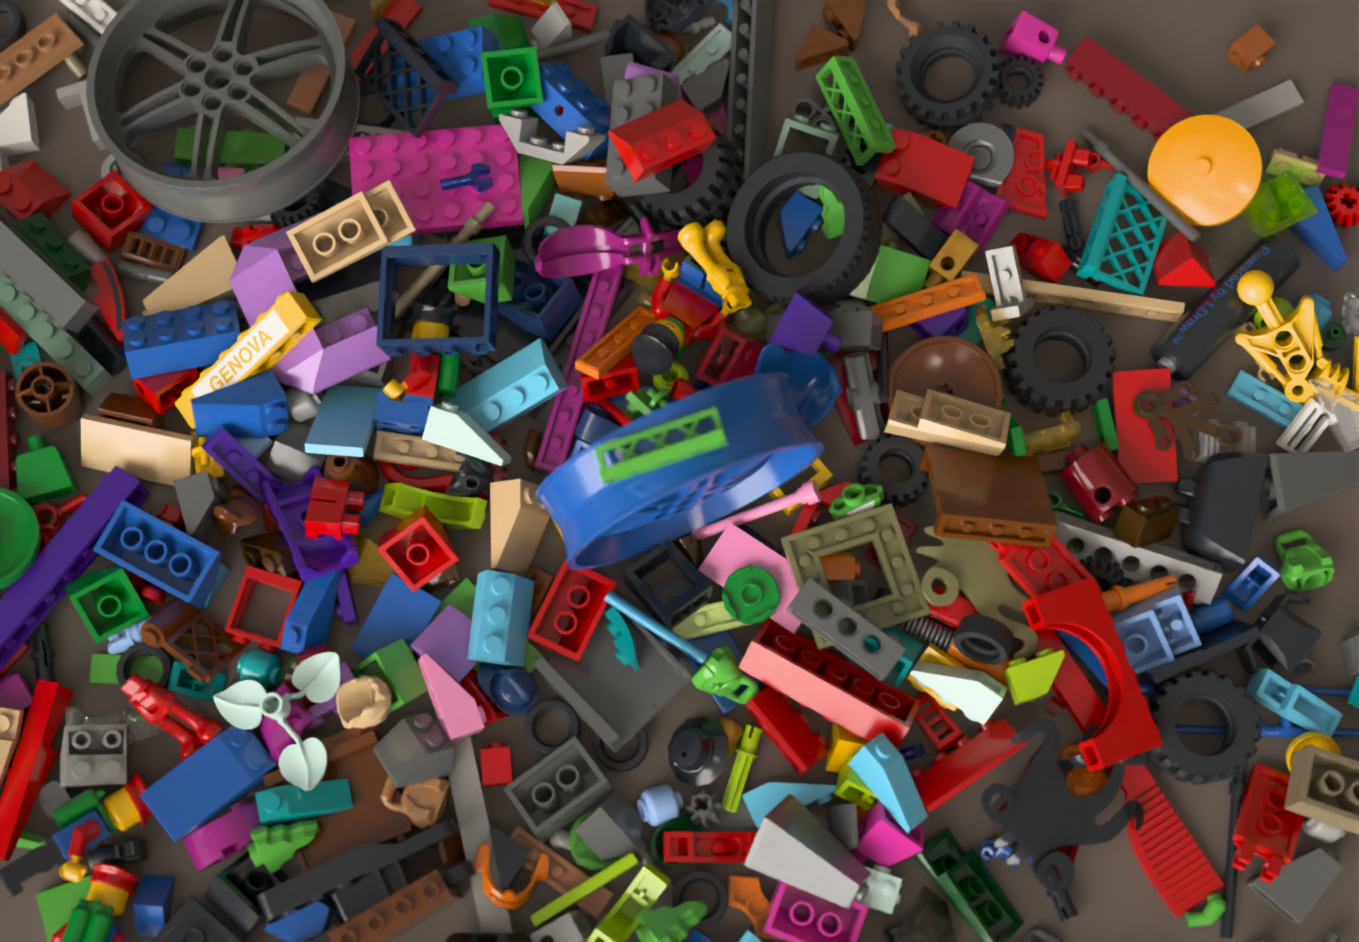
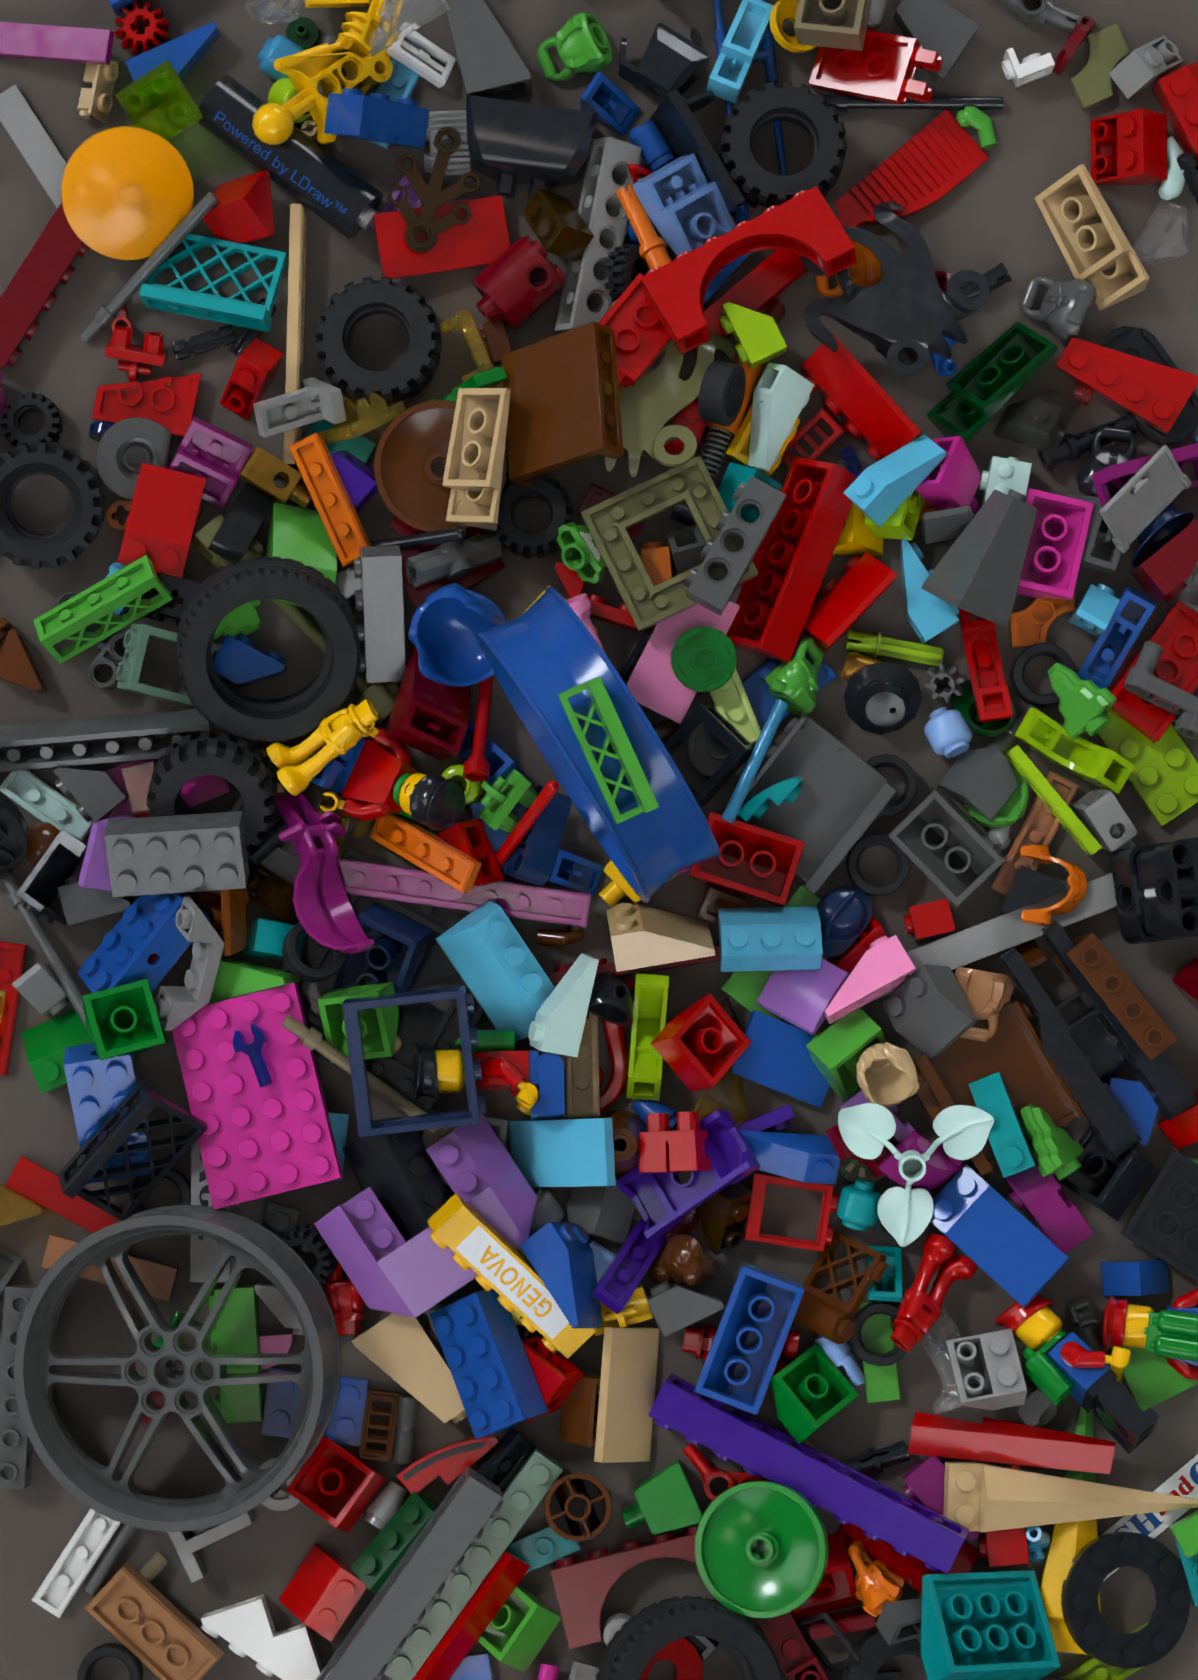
camera: 95 degrees left, 10 degrees up
(351, 230) = (347, 1174): tan slope -> none
(662, 139) = (191, 824): red slope -> none
(805, 327) = (393, 631): dark purple torso -> none
(1063, 506) = (546, 319): green hand -> none
(1104, 424) = (447, 282): green tile -> none
(1253, 380) = (376, 118): none -> blue wedge

